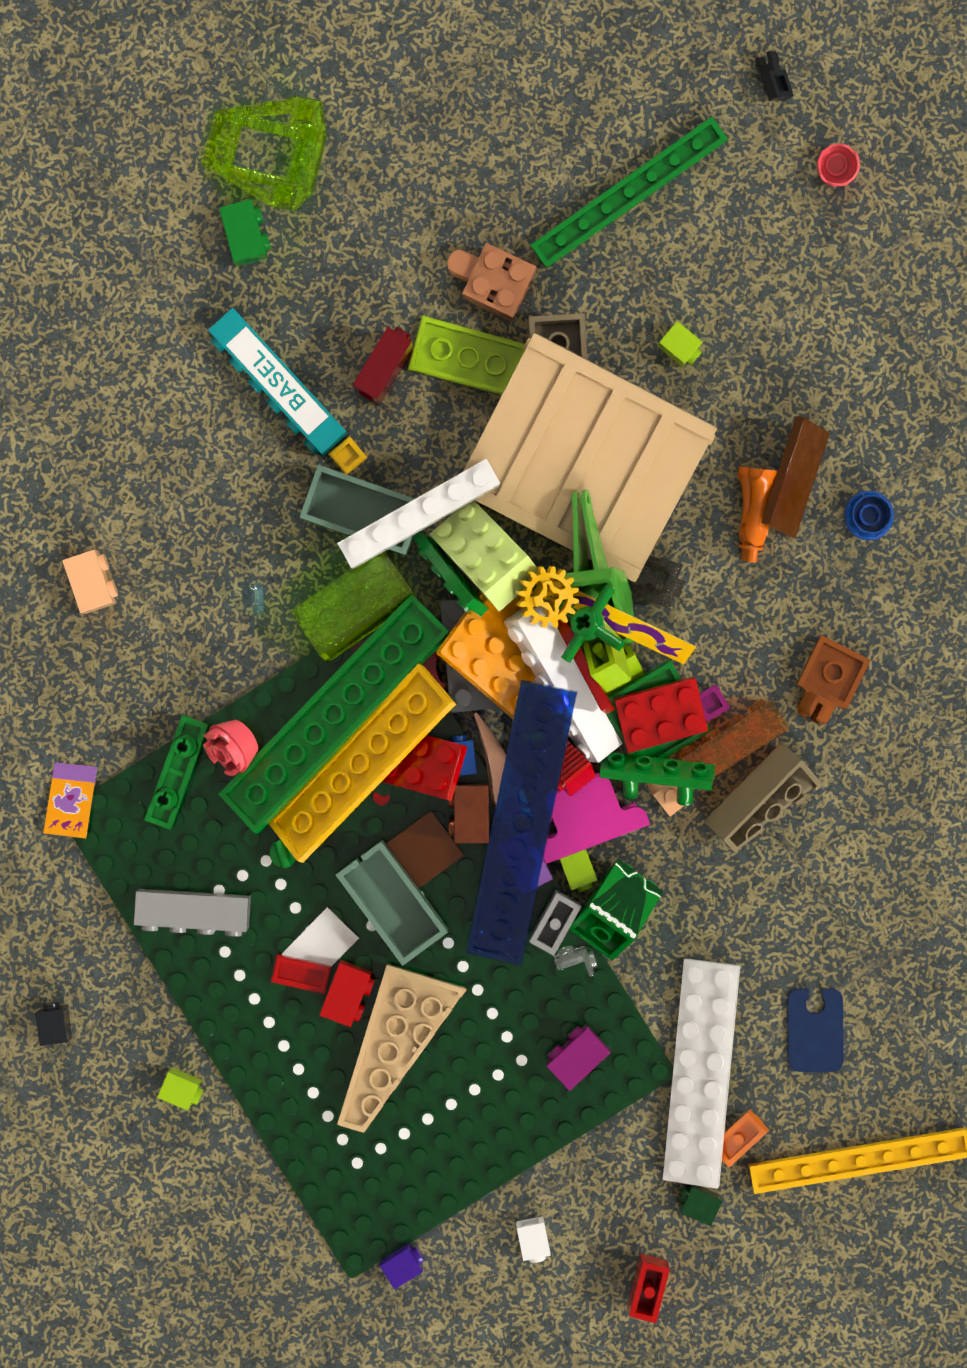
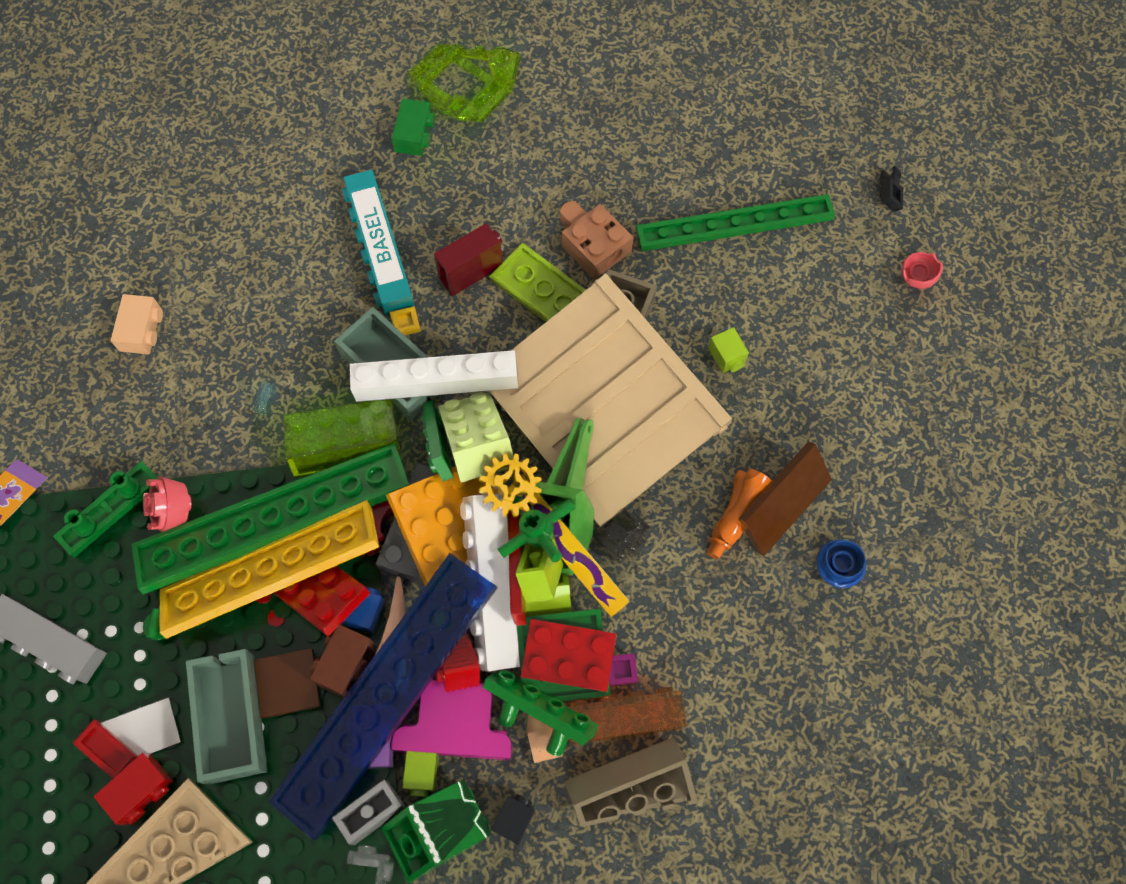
camera: 20 degrees right, 20 degrees down
(675, 870) = (514, 819): none -> black brick
(829, 679) = (745, 699): dark orange plate -> none

